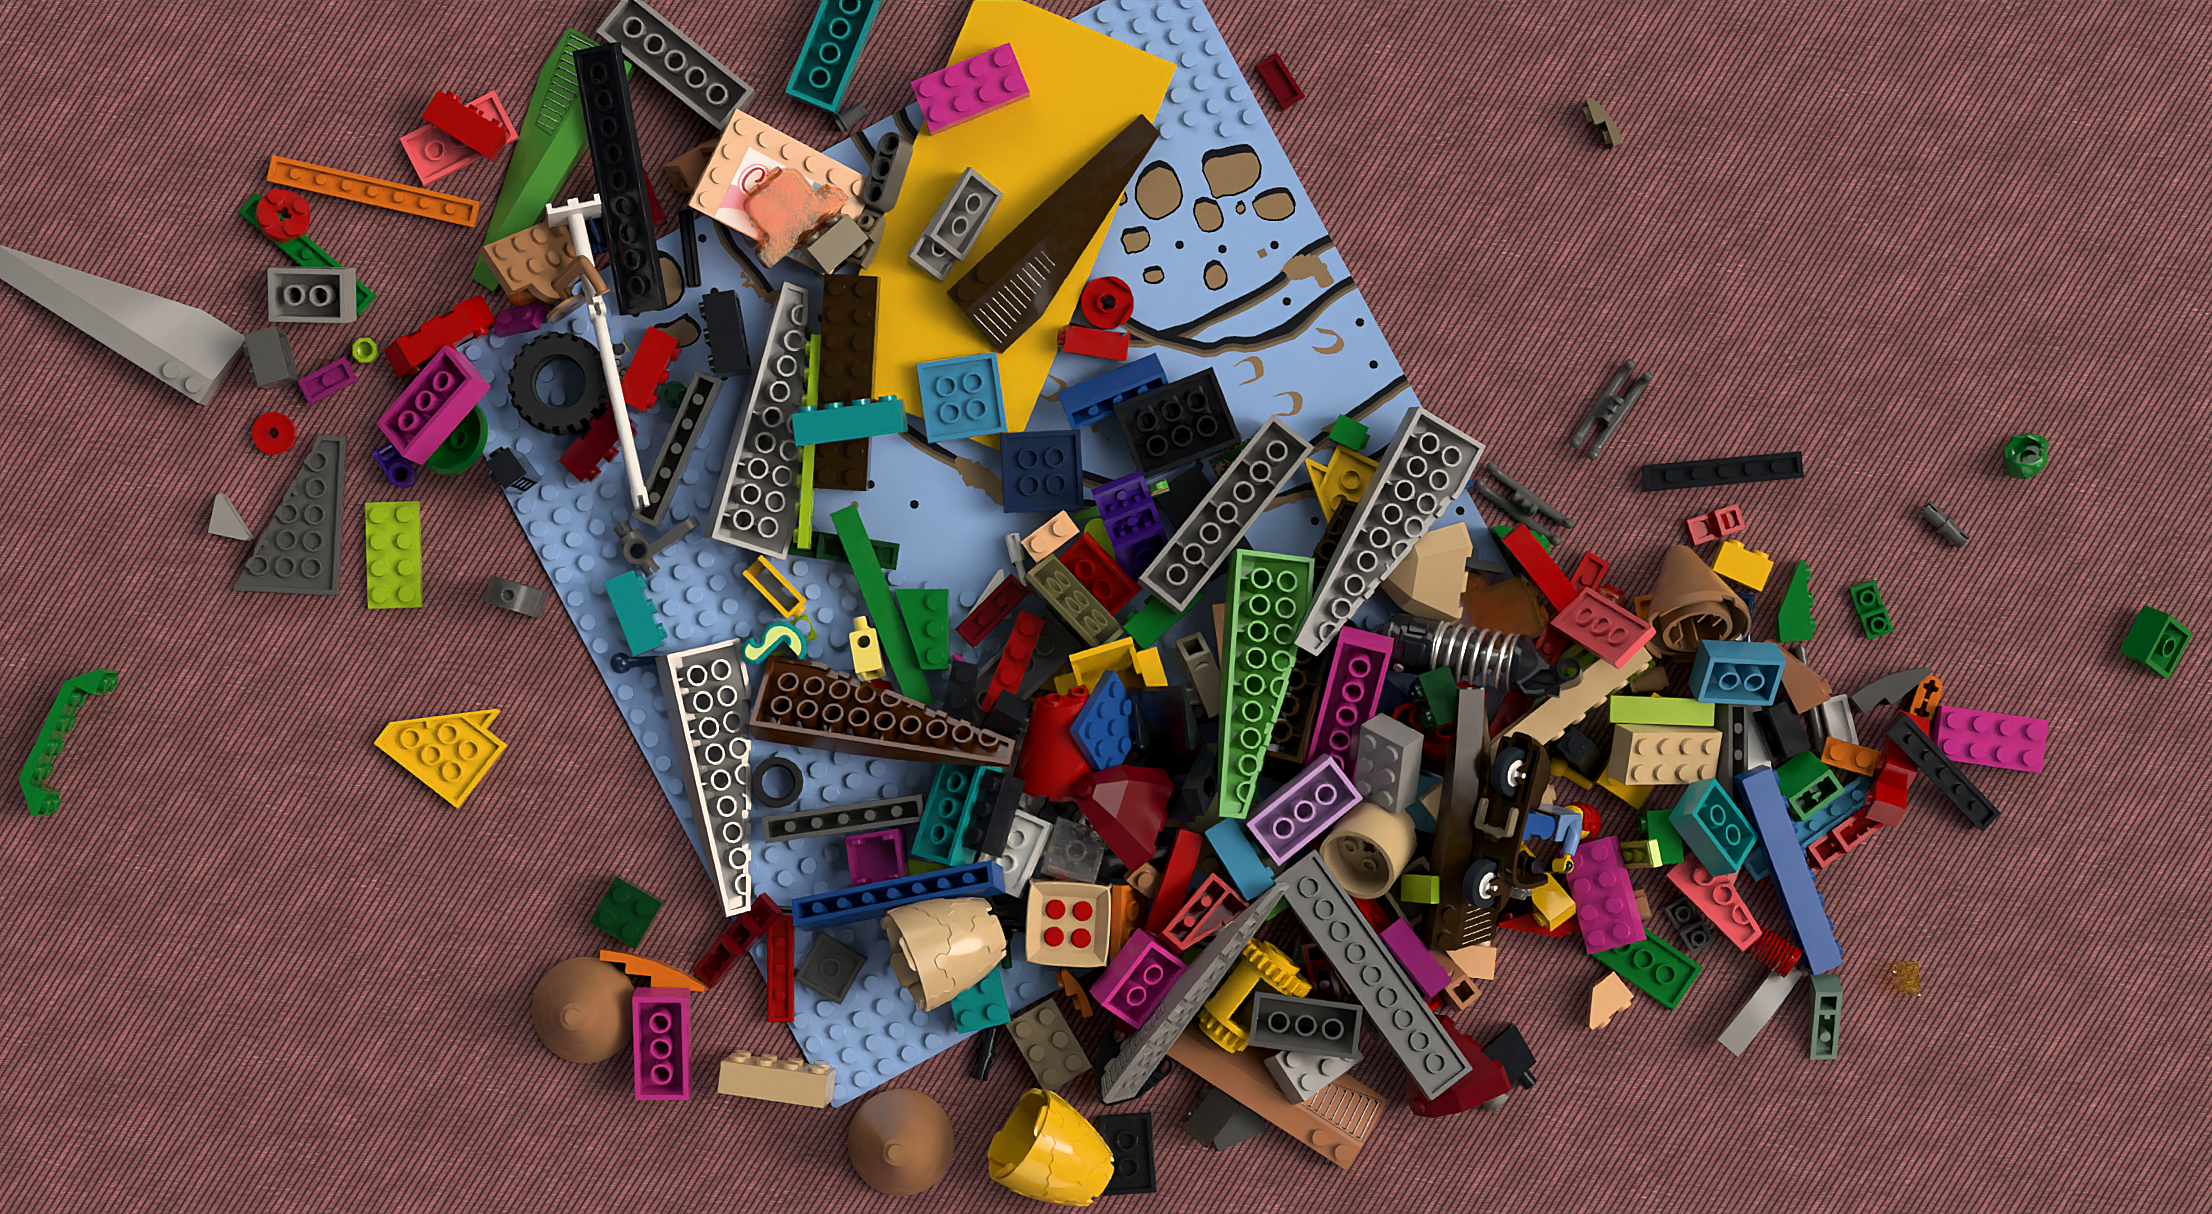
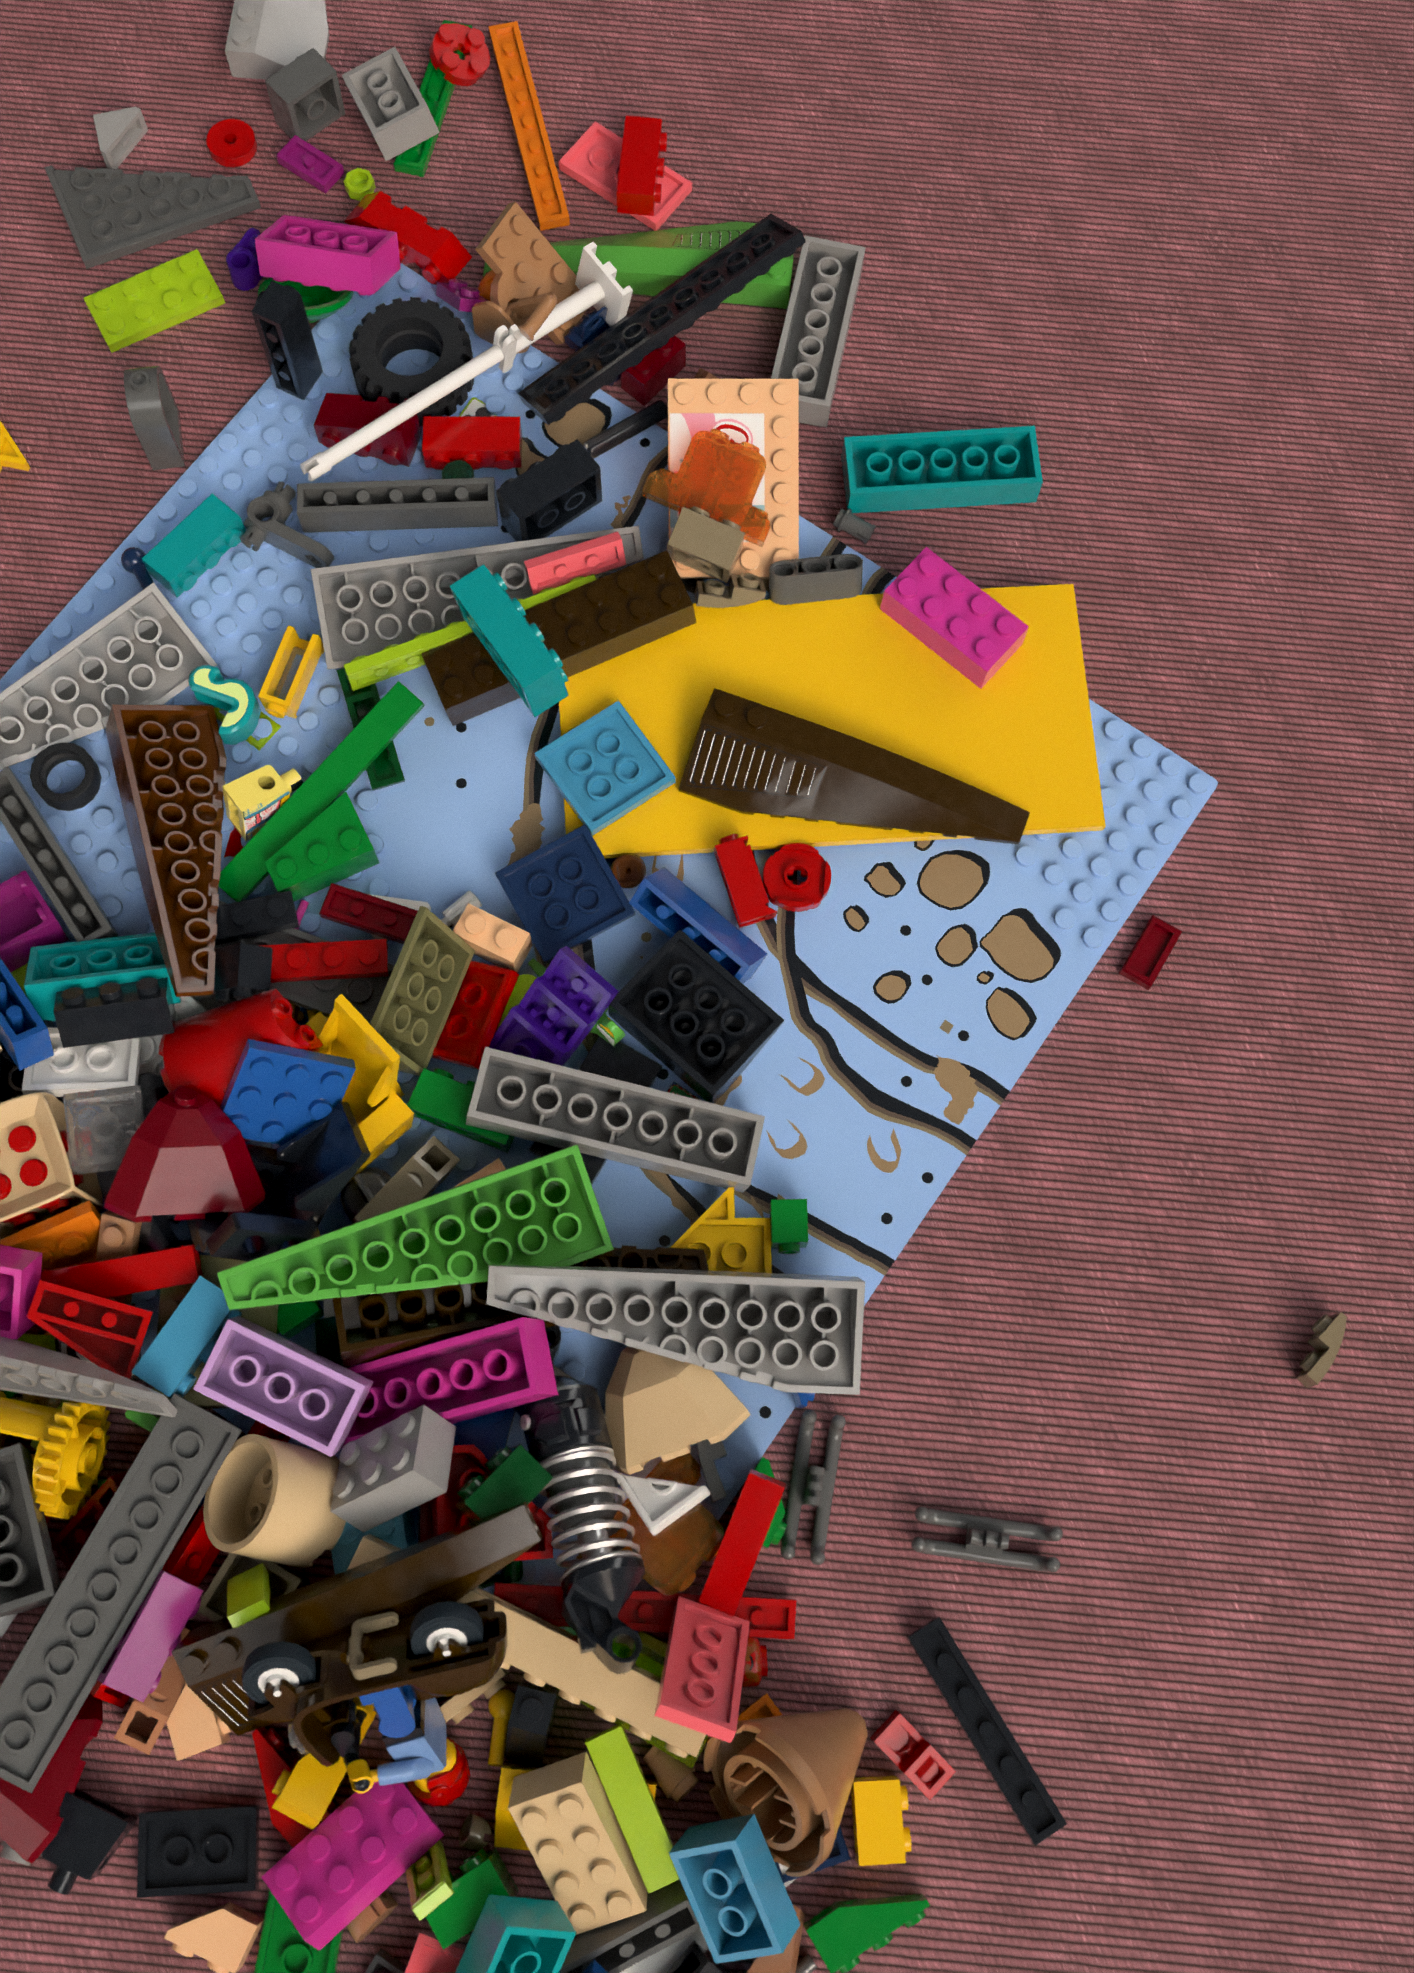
camera: 60 degrees right, 15 degrees down
(794, 343) = (575, 561): none -> coral plate
(955, 225) = (795, 668): light grey slope -> none
(1044, 418) = (629, 870): none -> reddish brown tile
(1487, 606) = (660, 1500): none -> white tile
(1551, 991) = (198, 1851): none -> black plate
(1624, 818) = (473, 1832): none -> dark tan hinge

